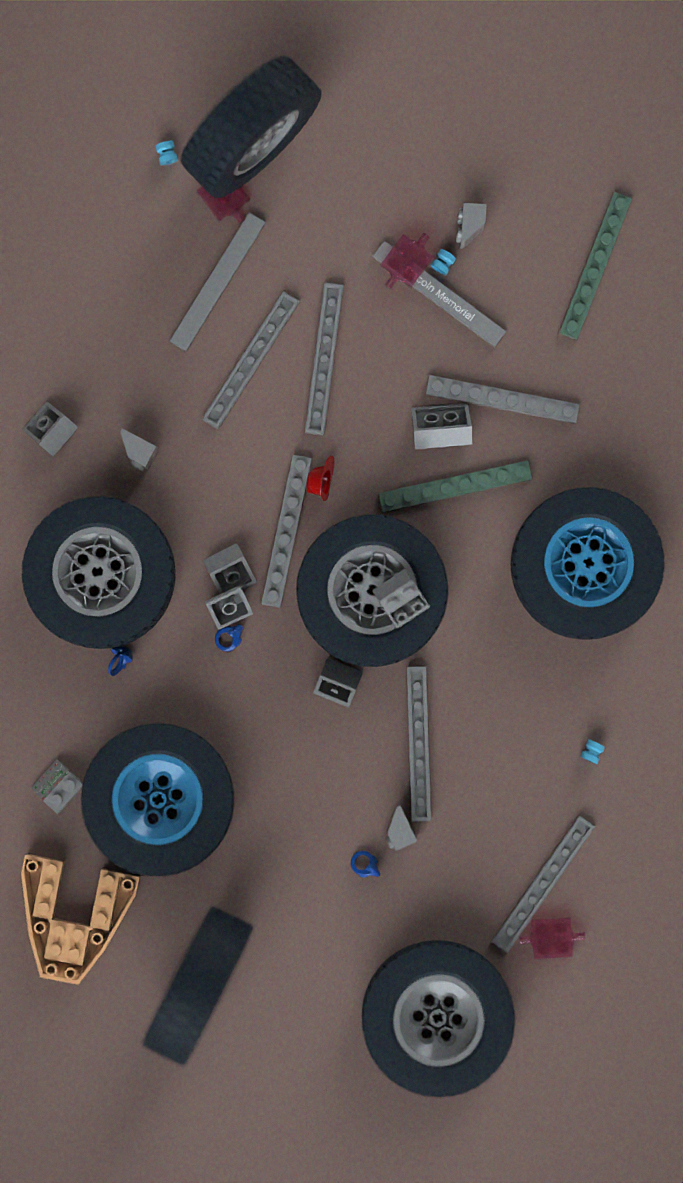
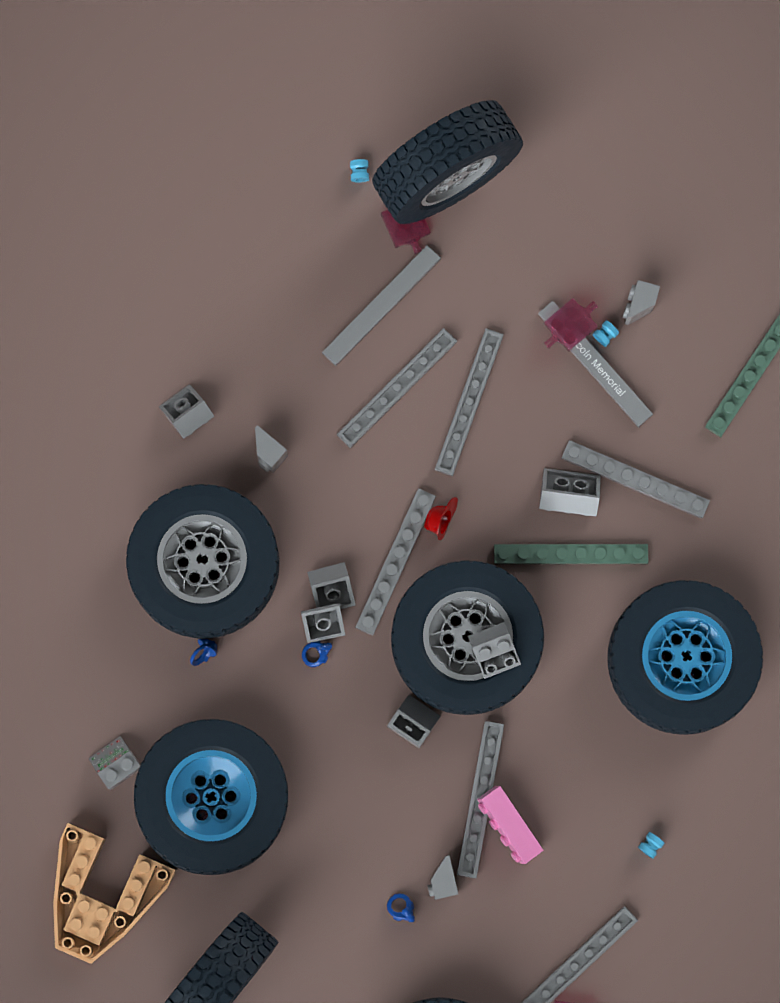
camera: 10 degrees right, 5 degrees down
(452, 762) = (509, 824): none -> bright pink brick

